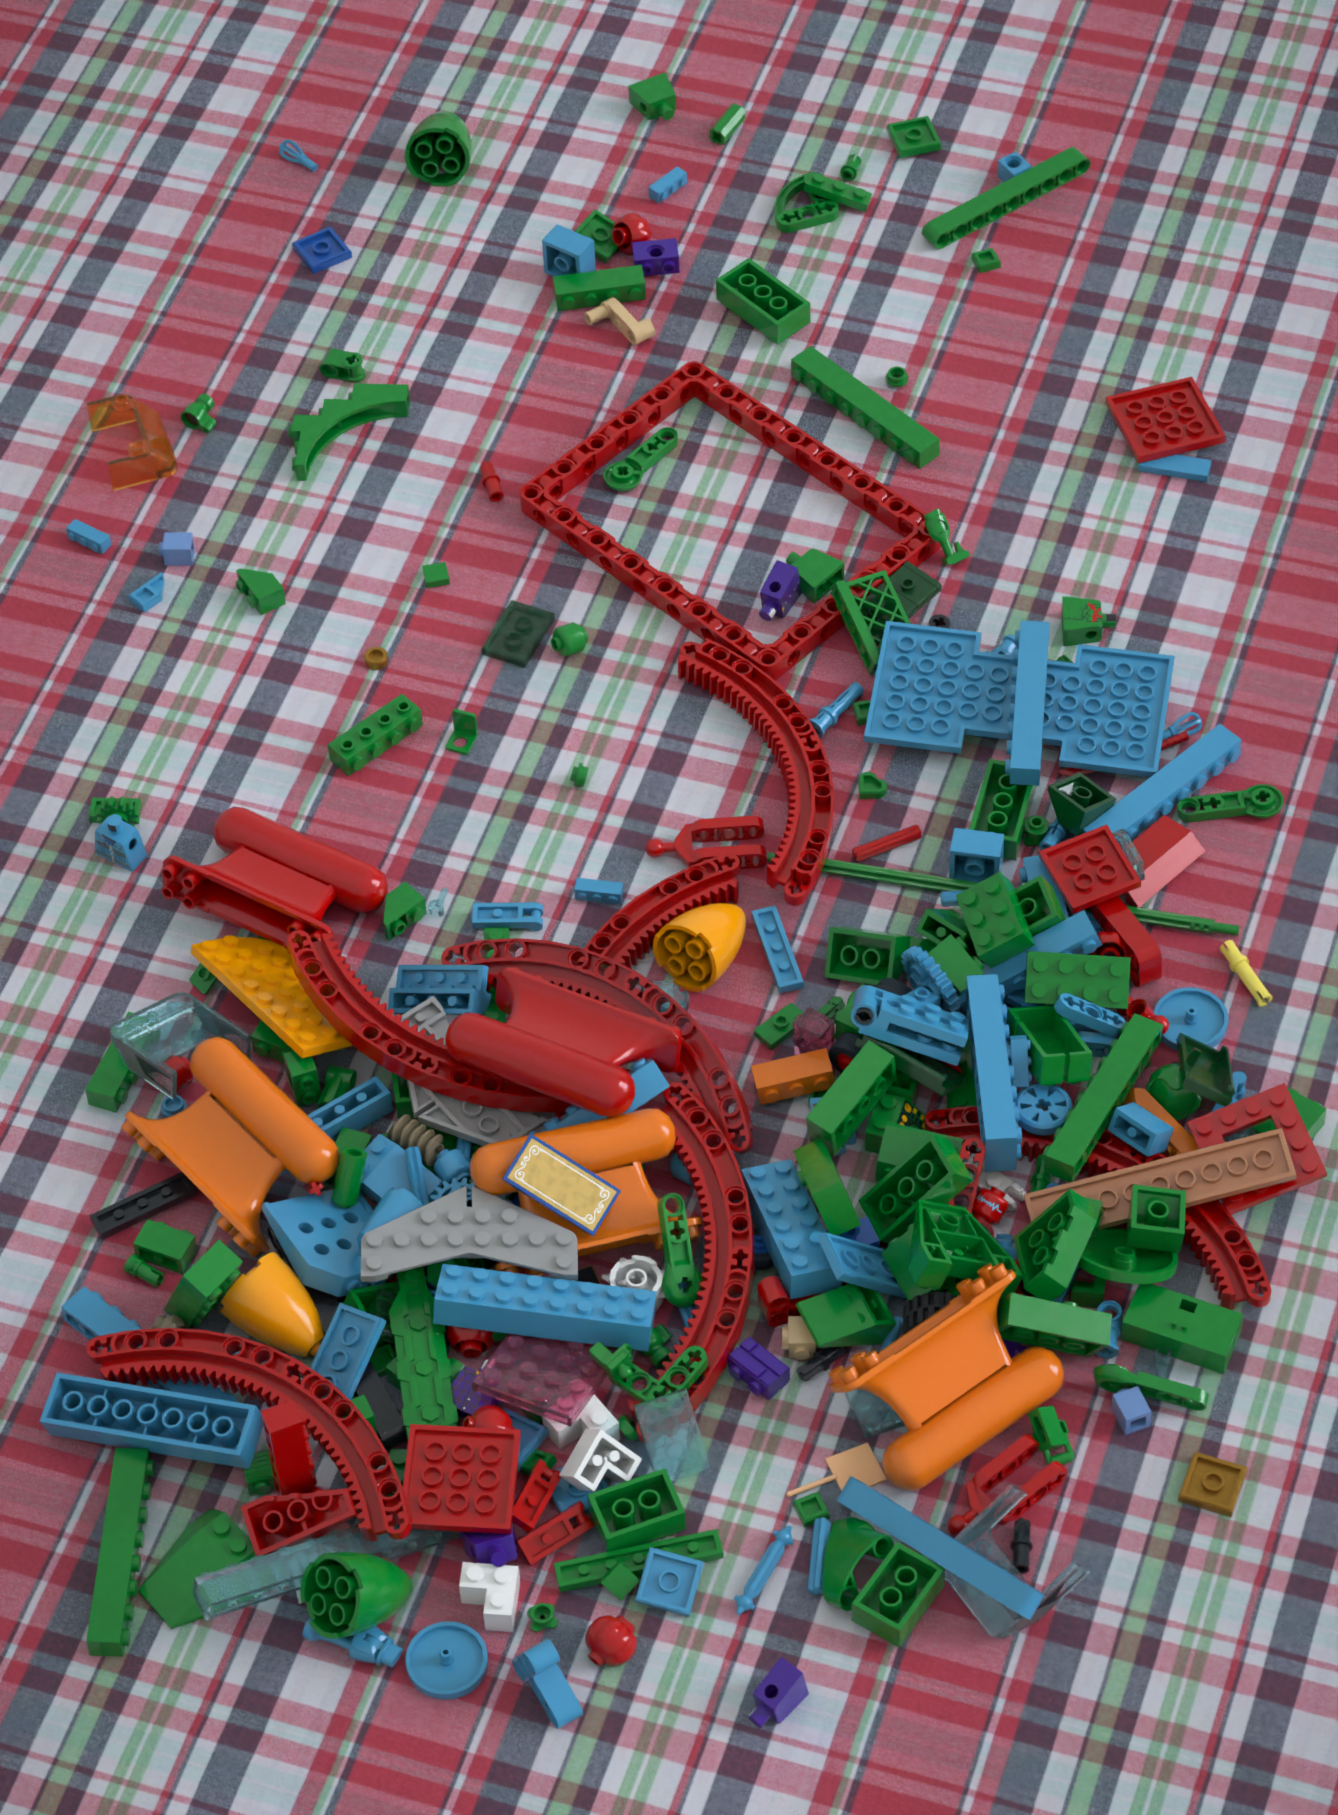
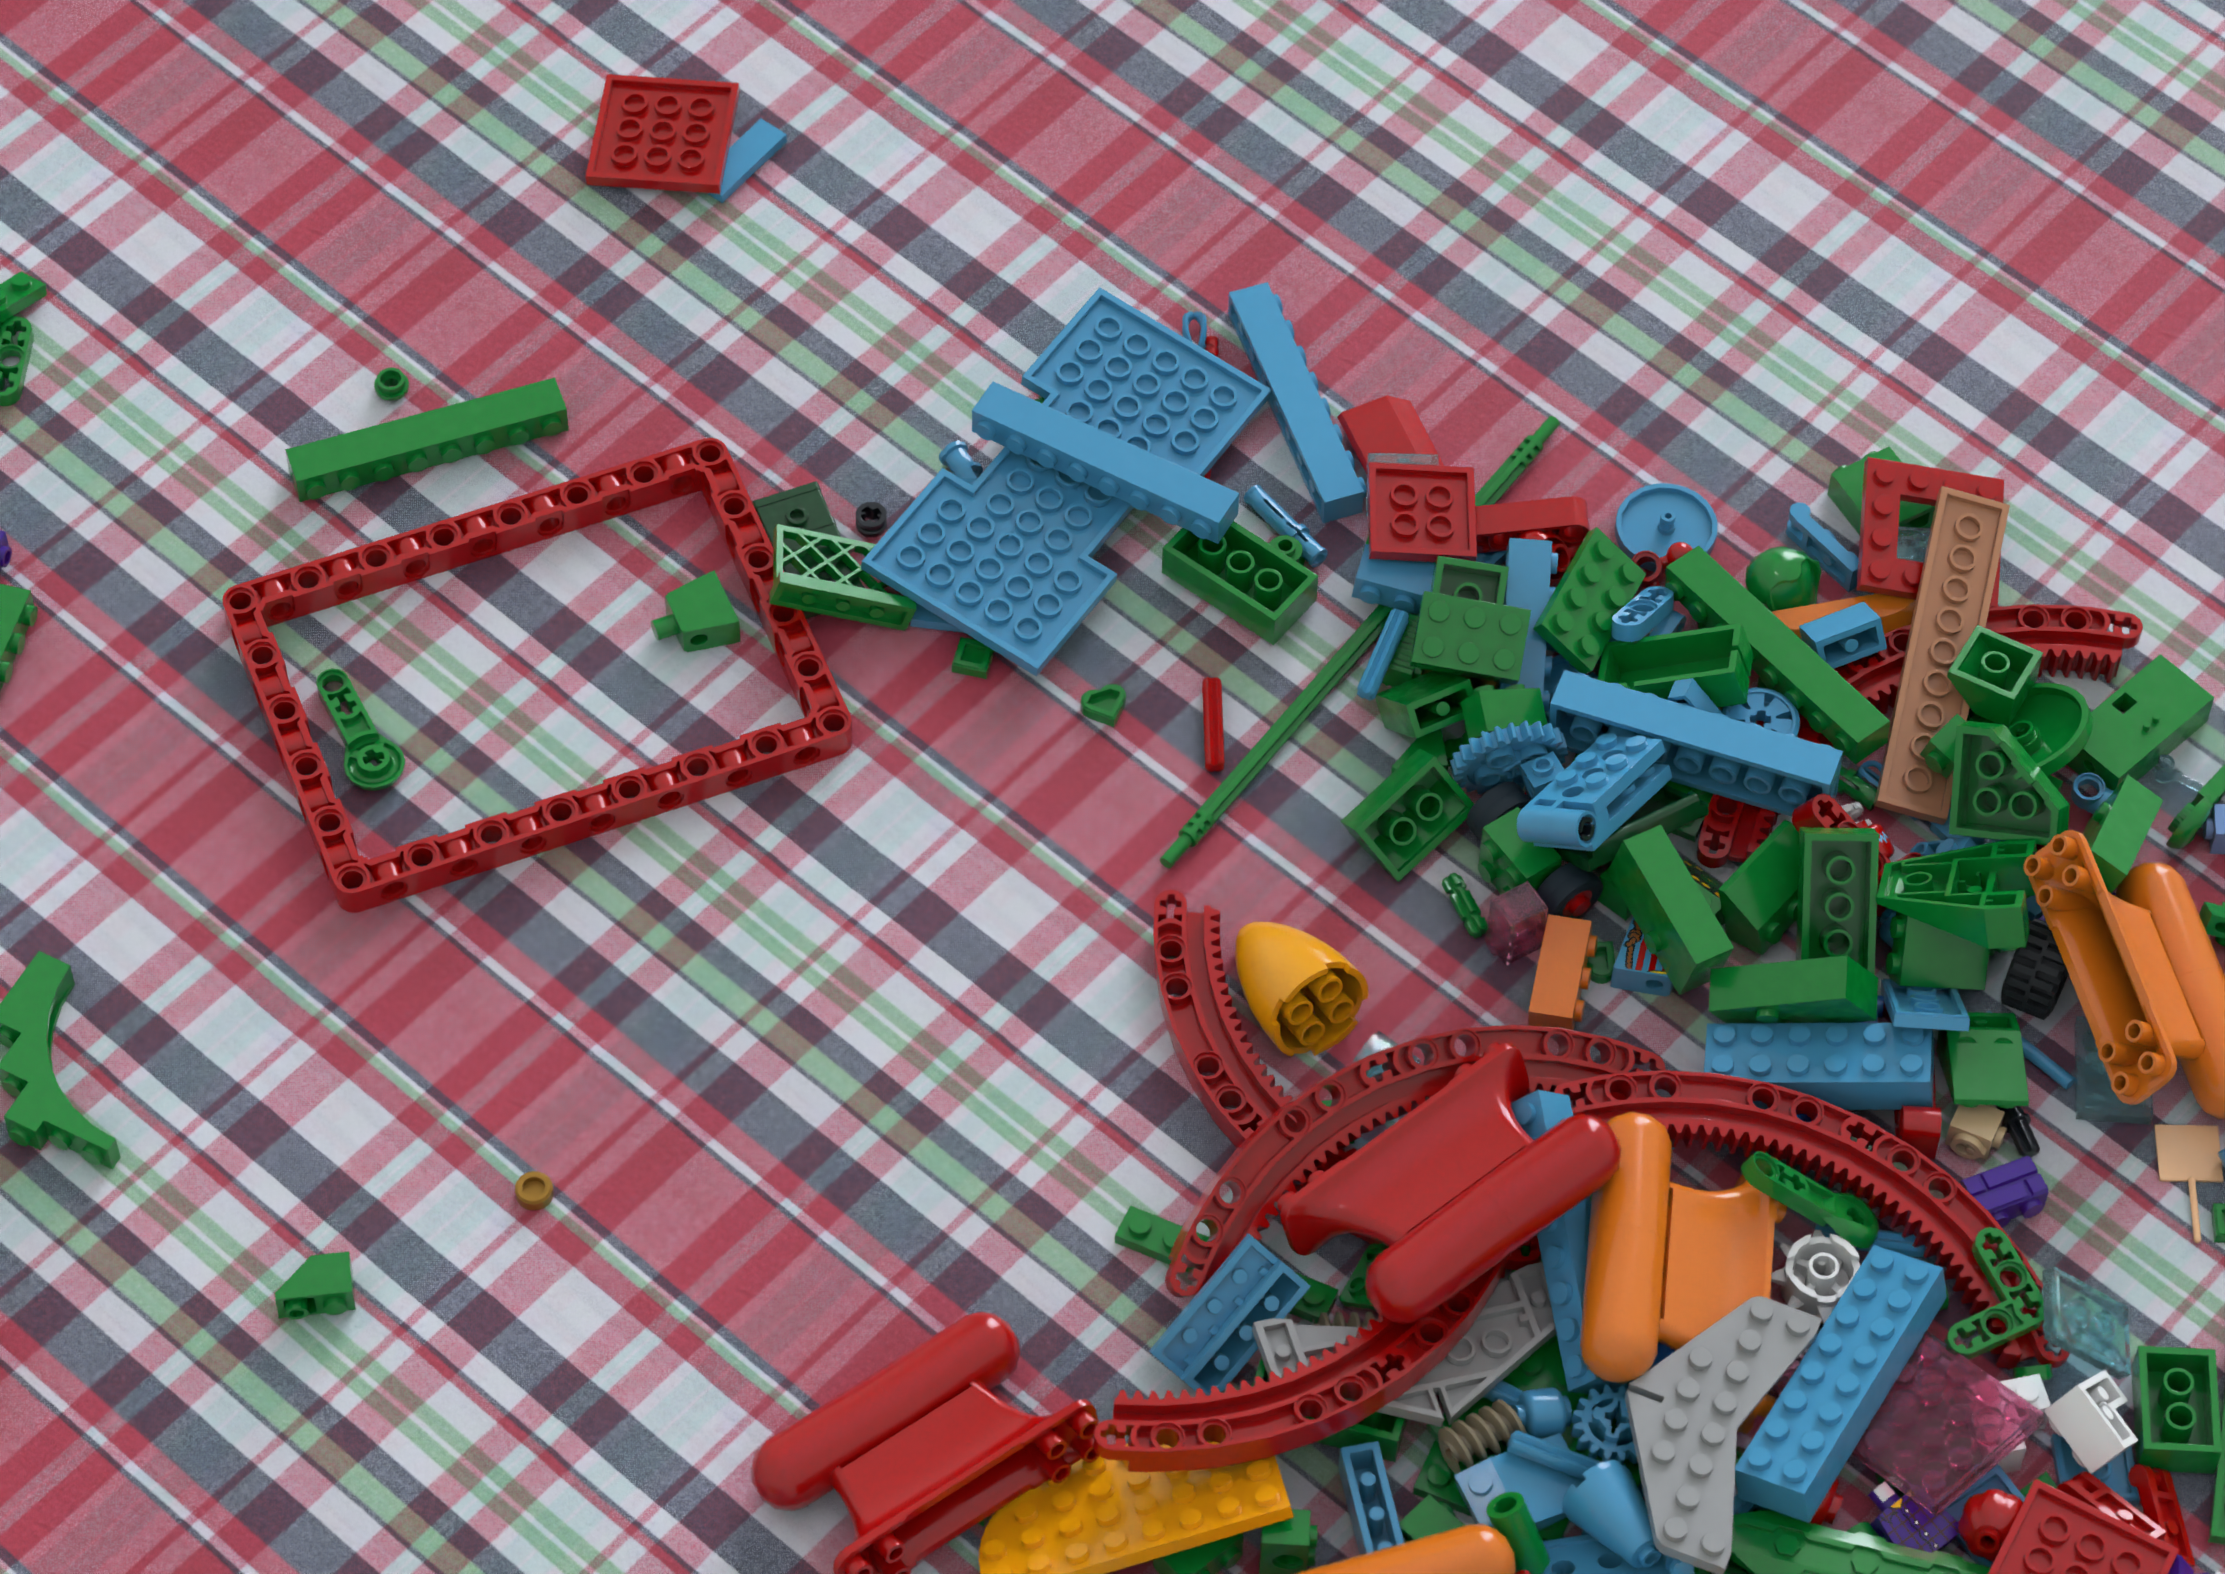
camera: 70 degrees left, 5 degrees up
(88, 536) = (60, 1480): dark azure piece -> none
(148, 594) = (227, 1439): dark azure tile -> none
(177, 548) = (168, 1367): medium blue brick -> none
(337, 1082) = (1331, 1526): green piece -> none
(375, 734) = (690, 1240): green brick -> none
(402, 909) = (1034, 1322): green slope -> none
(436, 575) = (419, 1059): green tile -> none
(438, 903) = (1036, 1275): clear light blue hand -> none
(464, 727) = (737, 1126): green bracket -> none
(491, 481) = (280, 925): red axle -> none
(508, 915) = (1107, 1201): dark azure plate -> none
(518, 633) = (592, 1001): clear green tile -> none
(561, 1185) = (1690, 1274): pearl gold tile -> none
(569, 639) = (651, 938): green head -> none
(579, 775) = (905, 1021): green plate -> none
(598, 891) = (1121, 1077): dark azure piece -> none
(613, 1363) = (1968, 1333): green piece -> none
(632, 329) = (96, 645): tan beam -> none
(715, 831) = (1101, 948): red piece -> none
(763, 301) = (156, 471): green brick -> none
(777, 949) = (1332, 912): dark azure plate -> none
(778, 1026) = (1457, 960): green plate -> none
(780, 591) = (718, 663): dark purple torso -> none
(795, 748) = (1016, 754): red gear -> none
(829, 715) = (967, 710): dark azure pin -> none
(939, 531) = (729, 443): green piece -> none
(975, 854) = (1310, 631): dark azure brick -> none
(986, 260) = (234, 201): green tile -> none
(1005, 198) = (138, 131): green beam -> none
(1011, 166) = (93, 100): dark azure brick -> none
(1078, 802) = (1286, 485): dark green slope -> none
(1083, 621) = (959, 363): green torso -> none
(1206, 1070) = (1786, 531): dark green container -> none
(1234, 804) = (1353, 336): green beam -> none
(1240, 965) = (1626, 441): light yellow pin -> none

